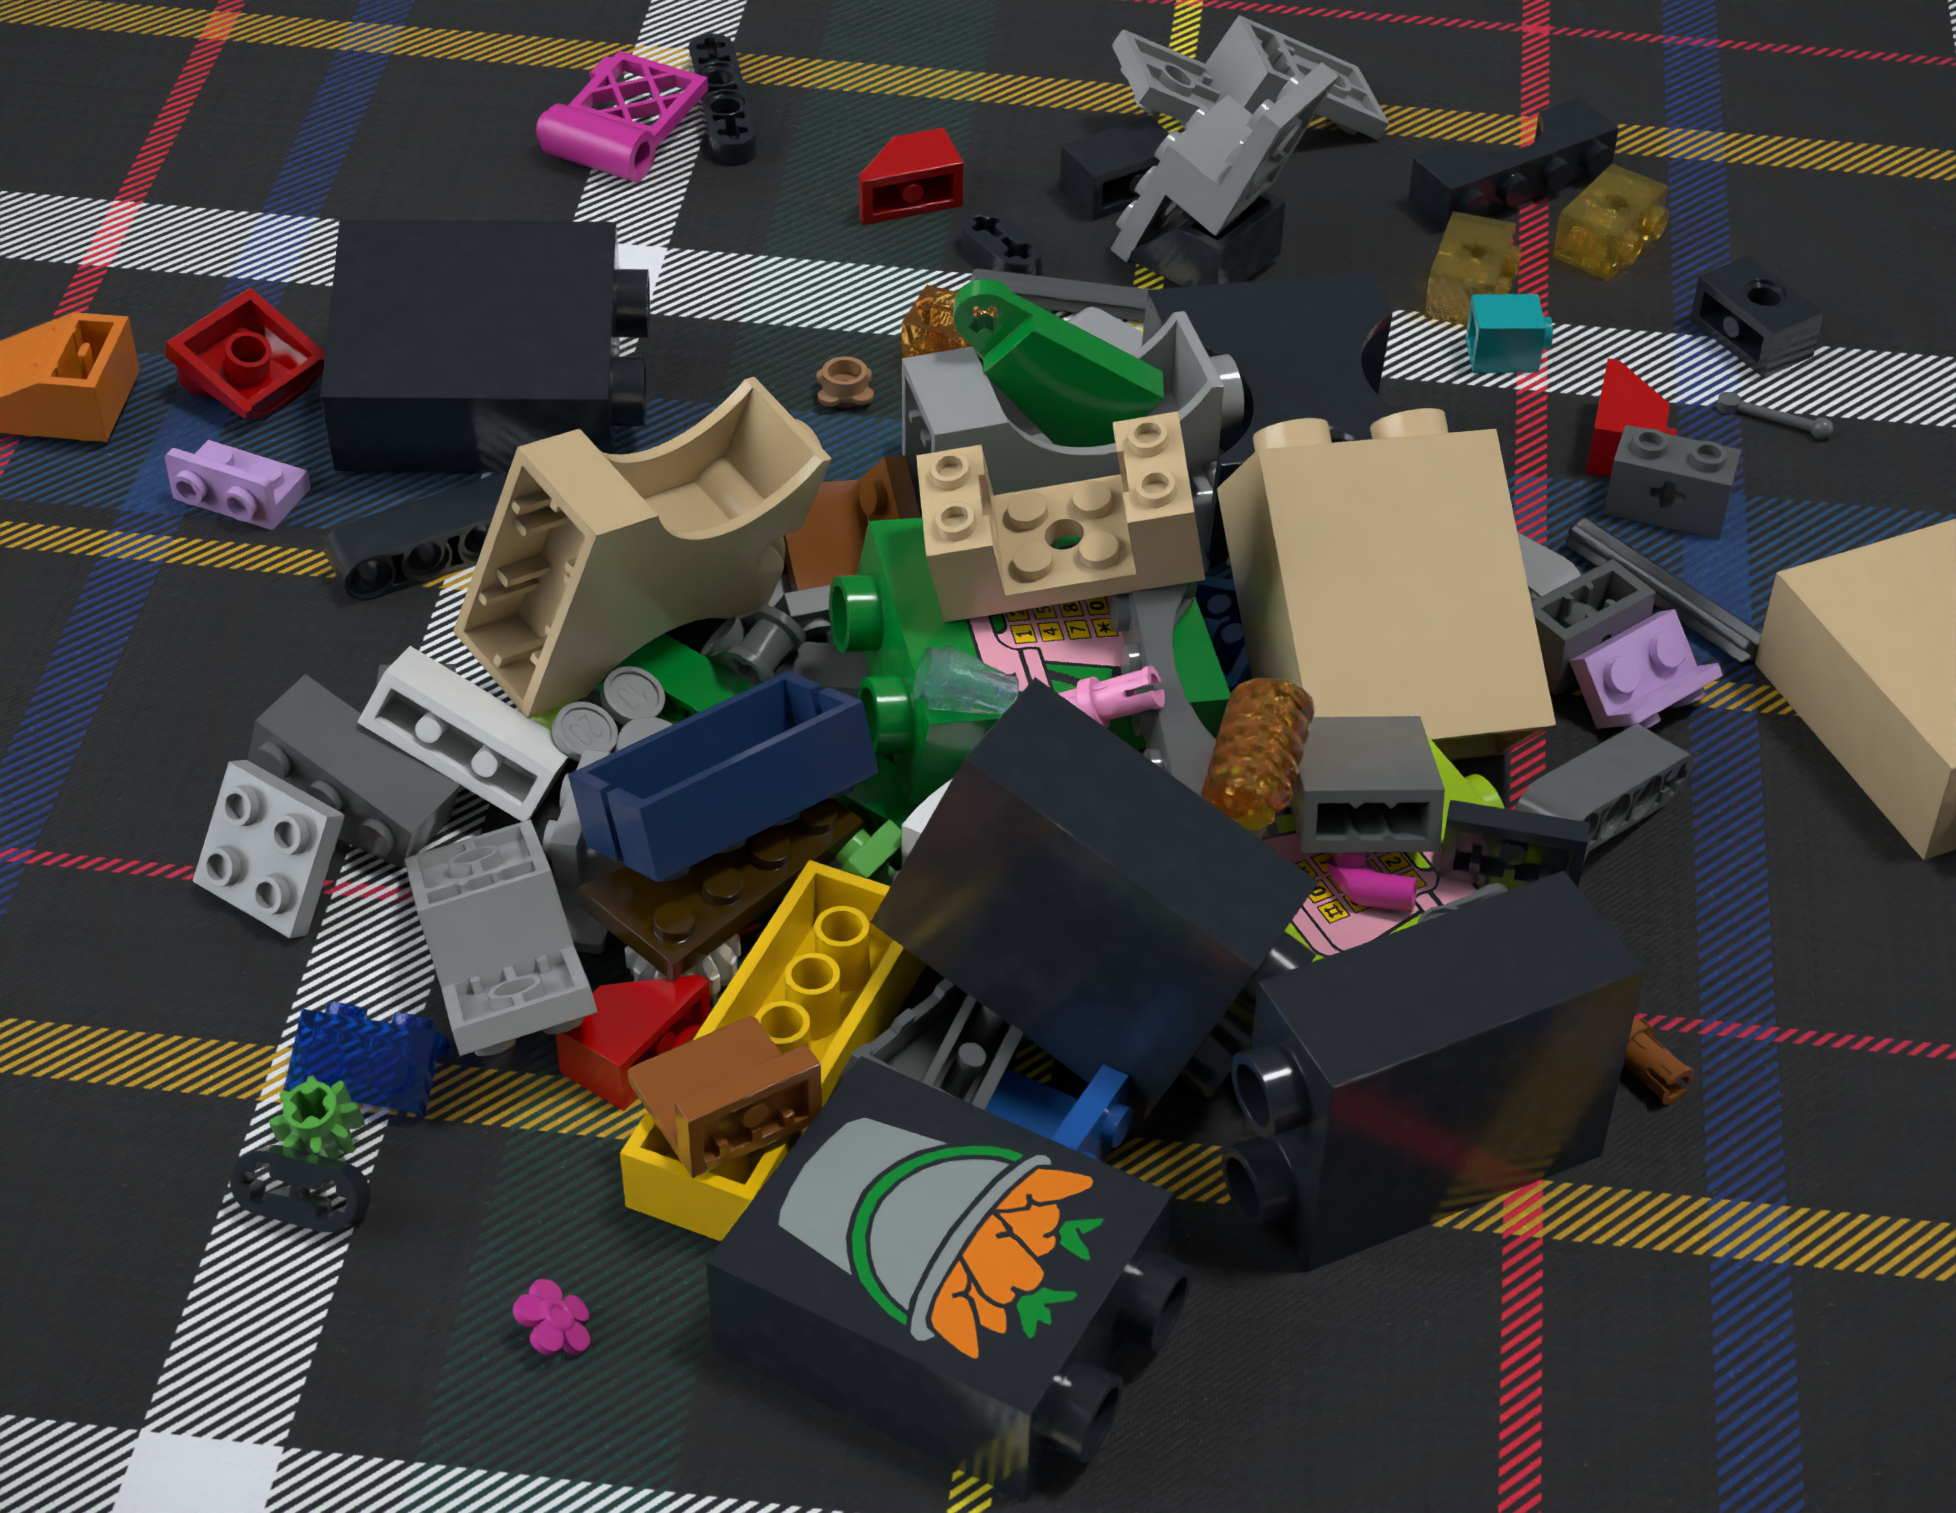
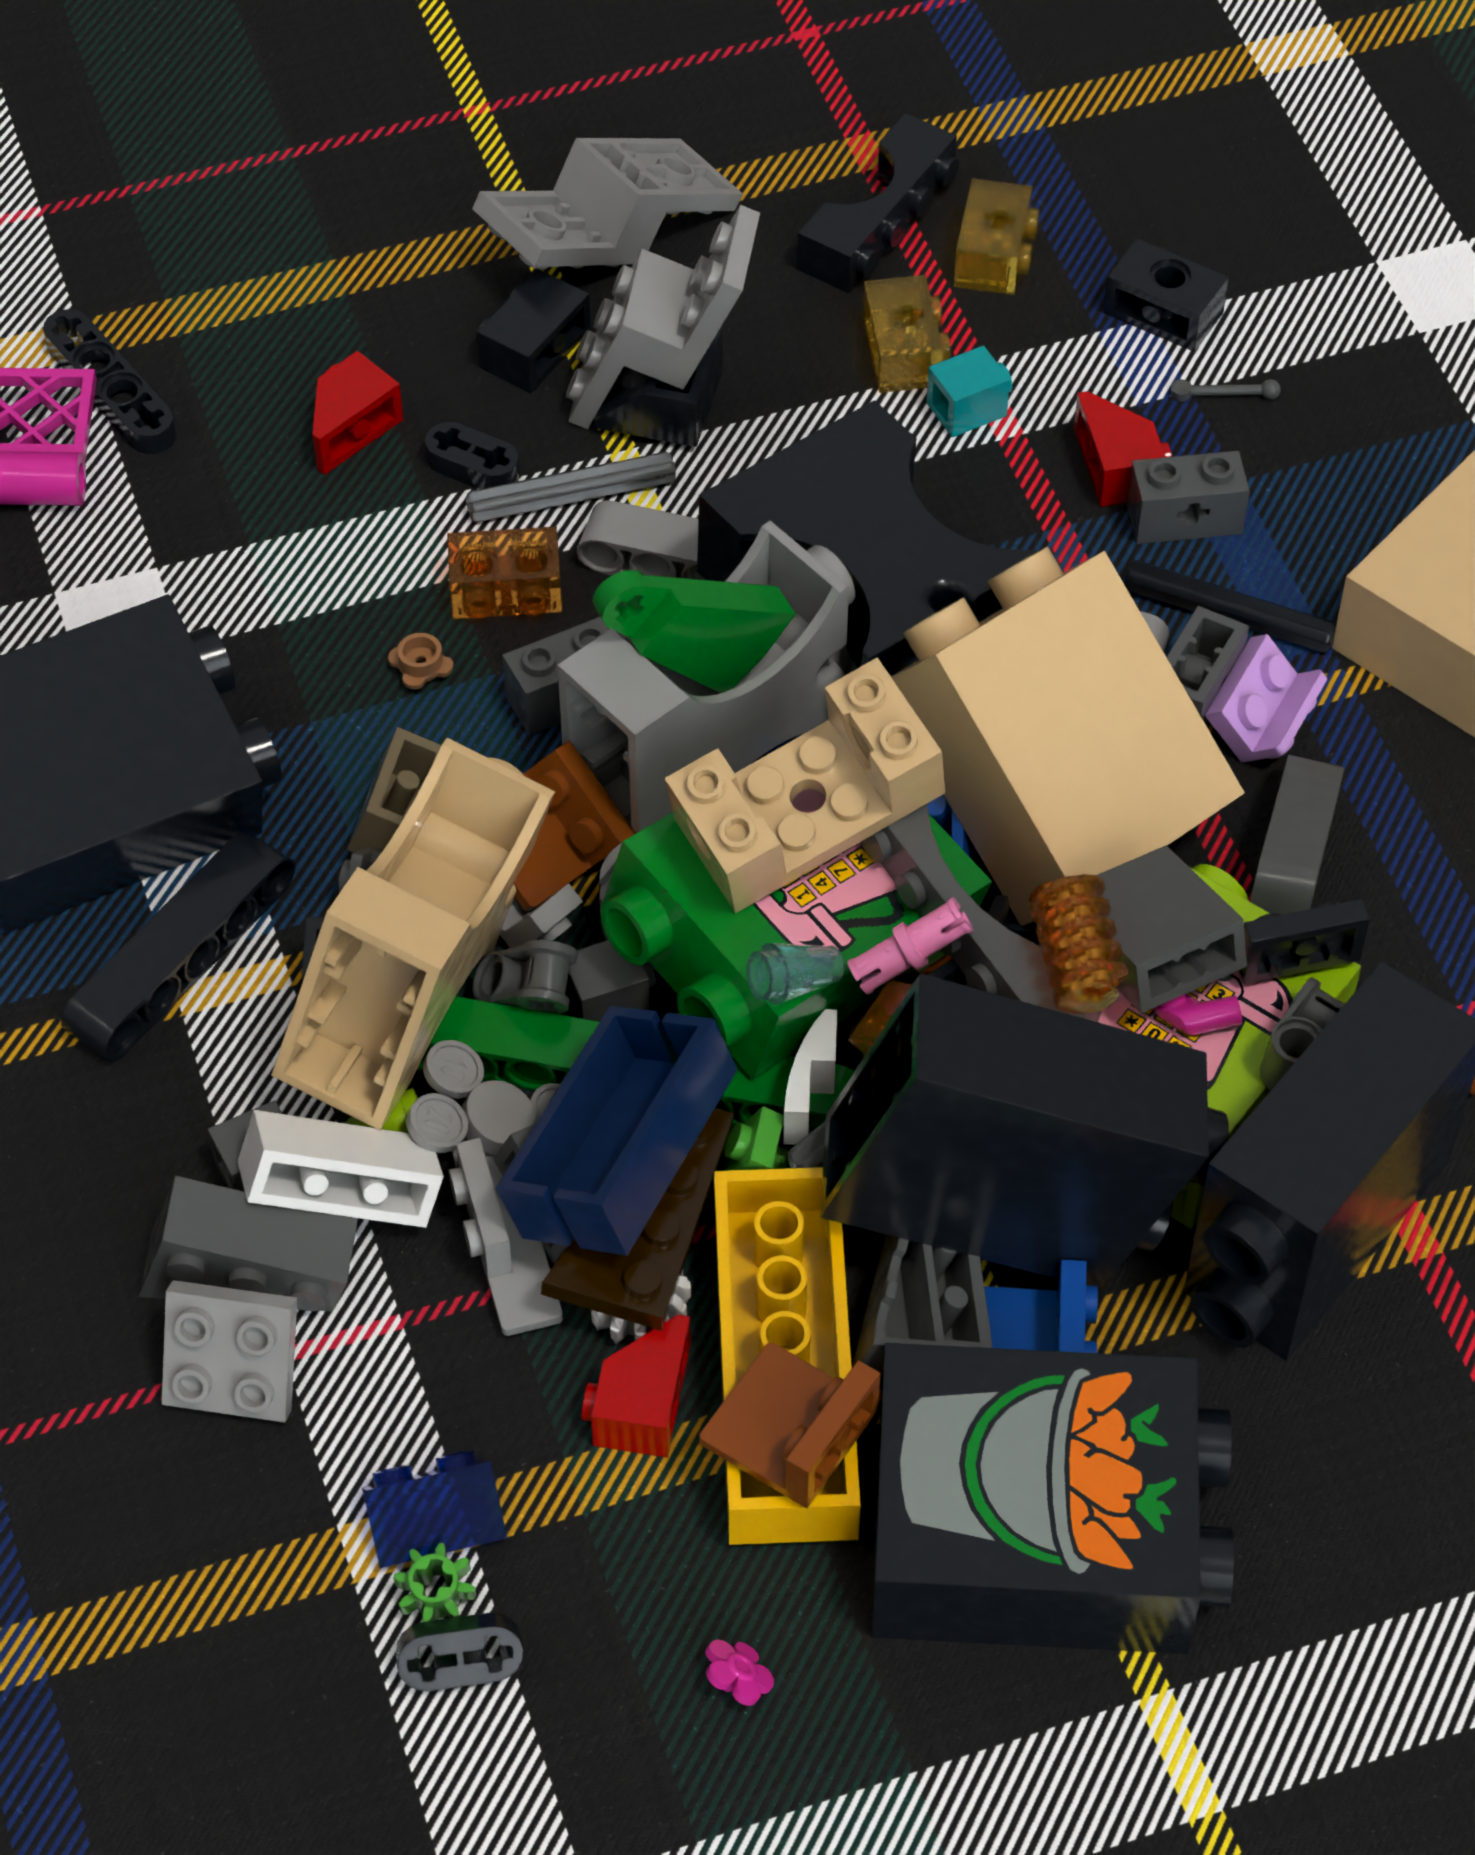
camera: 25 degrees left, 10 degrees up
(499, 939) = (489, 1351): light grey bracket -> none

